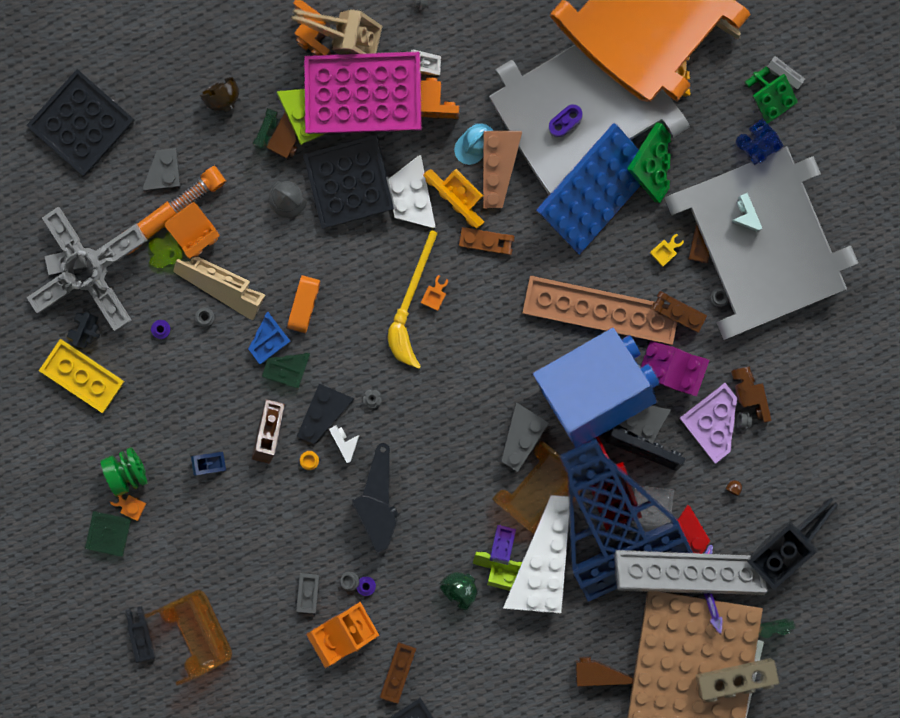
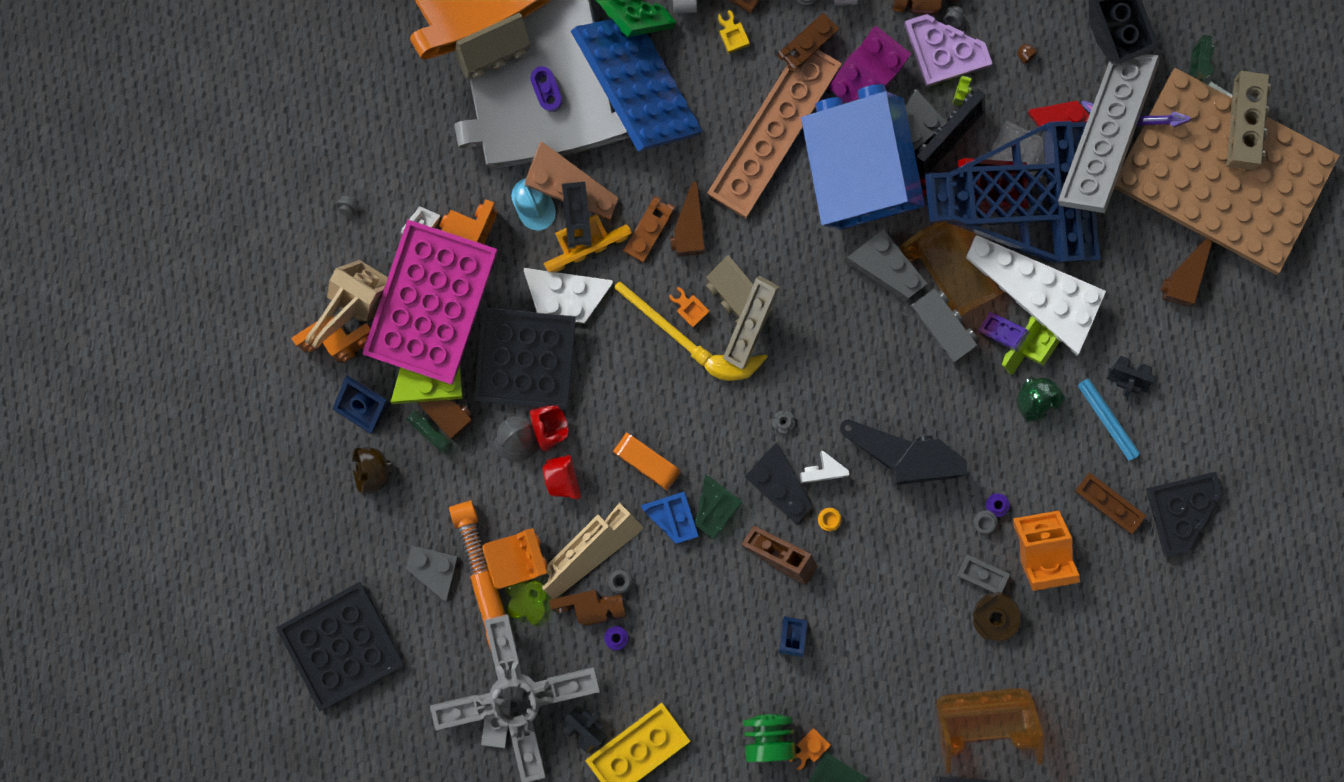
camera: 70 degrees left, 5 degrees down
(176, 300) = (589, 608): none -> reddish brown plate
(266, 243) = (561, 478): none -> red hair
(268, 615) = (996, 630): none -> dark brown plate
(269, 69) = (360, 404): none -> dark blue slope
(303, 219) = (549, 426): none -> red hair
(436, 345) = (751, 322): none -> dark tan plate
(456, 328) = (731, 286): none -> dark tan slope
(463, 651) = (1109, 419): none -> dark azure axle
(475, 179) = (576, 214): none -> black plate
(488, 496) = (945, 325): none -> dark grey slope
(494, 272) = (688, 230): none -> reddish brown slope
(500, 656) = (1131, 379): none -> black hips
(581, 67) = (492, 47): none -> dark tan slope
(684, 448) = (962, 90): none -> lime plate

